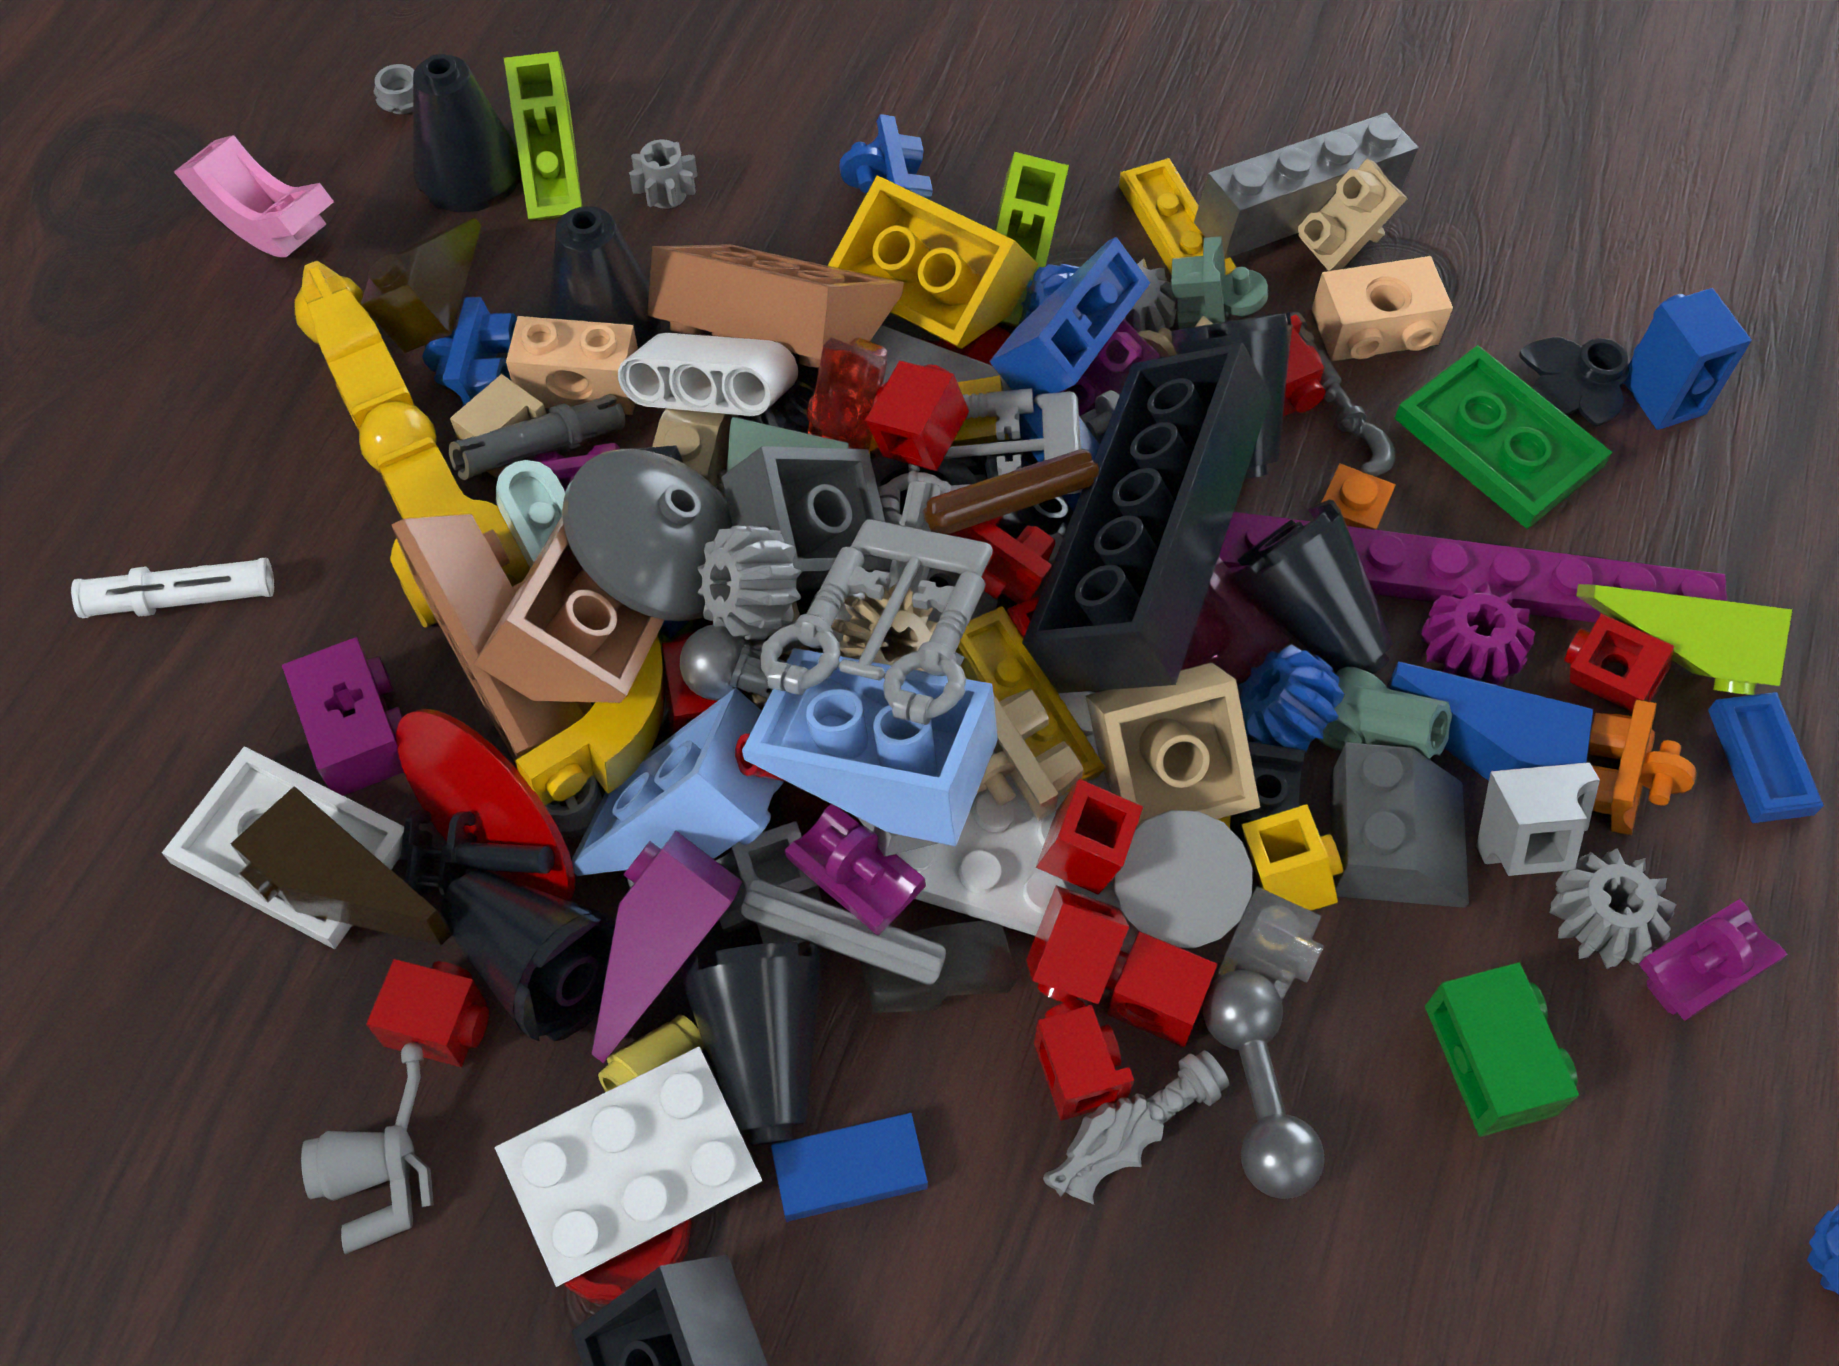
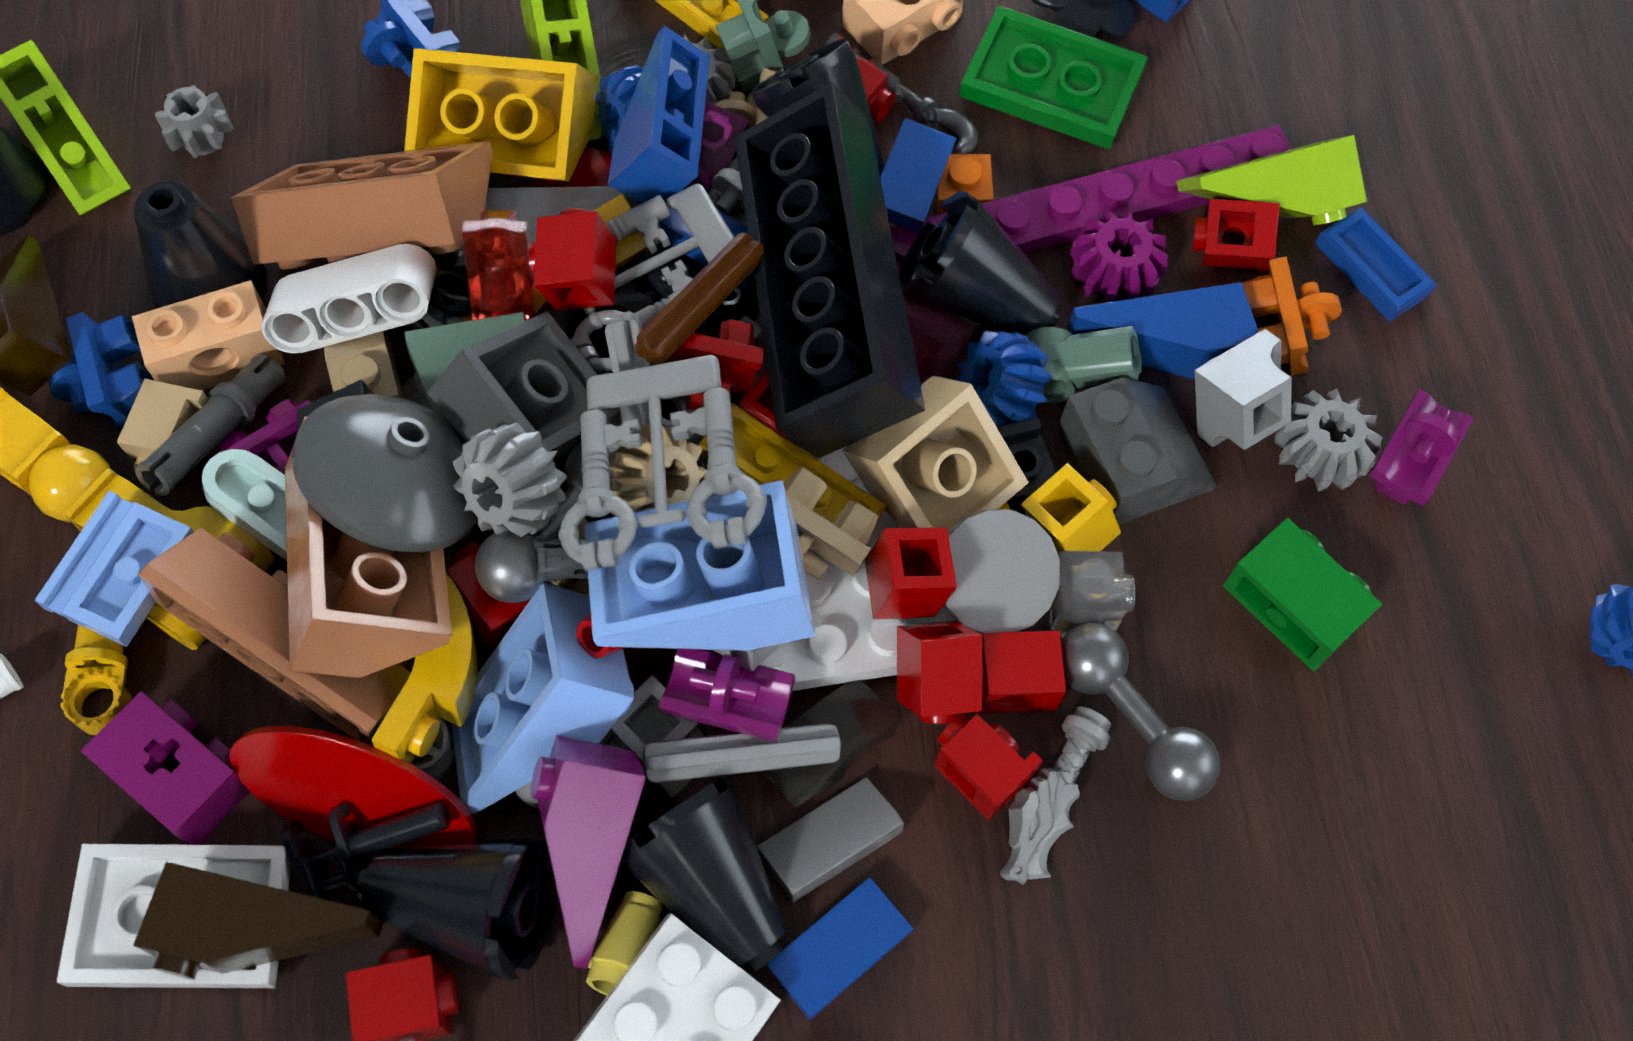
camera: 30 degrees left, 5 degrees up
(340, 596) = (93, 666): none -> yellow connector
(360, 523) = (99, 573): none -> light blue plate
(895, 1061) = (830, 839): none -> light grey slope
(1300, 471) = (914, 173): none -> blue tile

